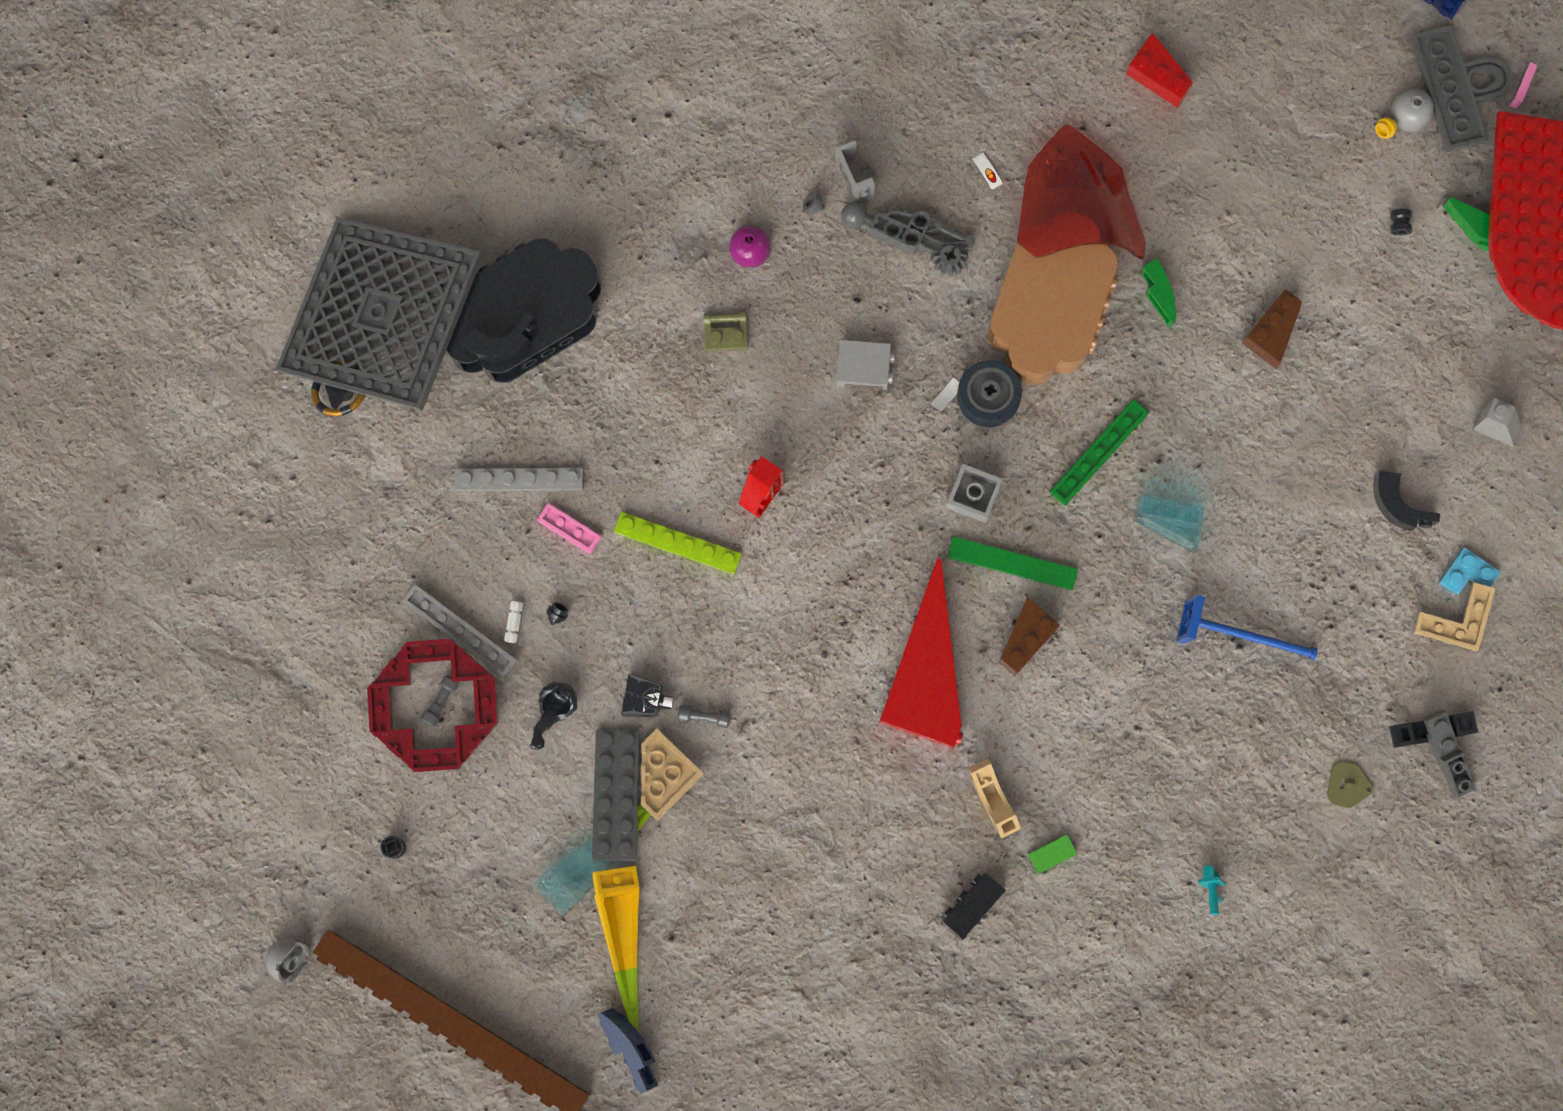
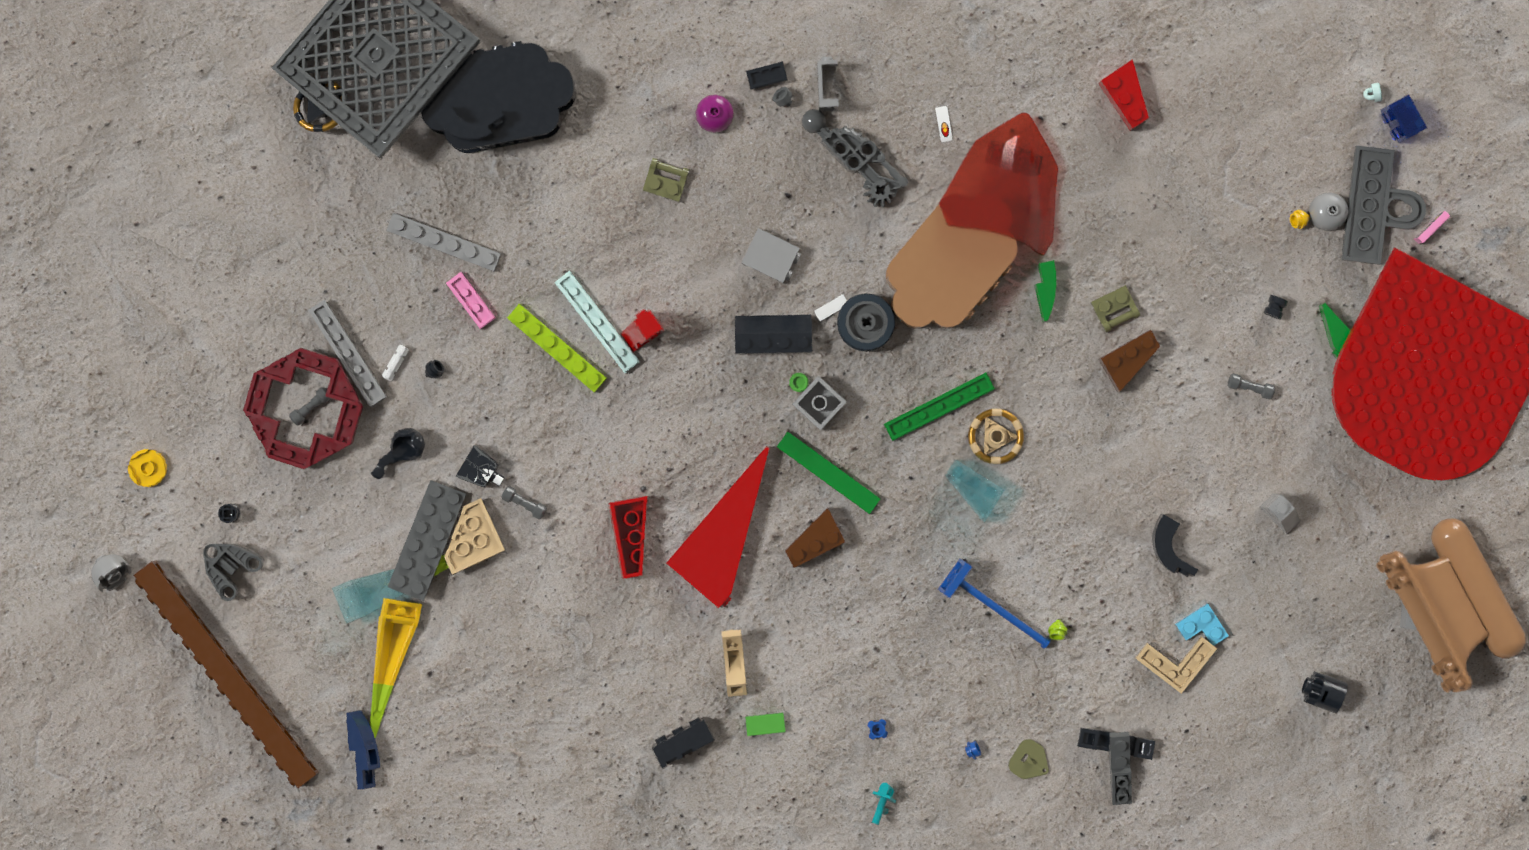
camera: 15 degrees right, 10 degrees up
(288, 833) = (147, 468): none -> yellow tile
(406, 921) = (220, 579): none -> dark grey connector
(710, 500) = (597, 322): none -> light aqua tile
(788, 189) = (766, 75): none -> black plate
(828, 704) = (628, 527): none -> red wedge
(898, 444) = (773, 334): none -> black slope
(943, 482) = (798, 382): none -> bright green tile
(1170, 460) = (996, 436): none -> tan piece
(1175, 807) = (877, 734): none -> blue plate
(1233, 280) = (1112, 302): none -> olive plate
(1284, 796) = (973, 750): none -> blue plate
(1320, 635) = (1057, 630): none -> lime plate
(1428, 308) = (1267, 390): none -> dark grey piece

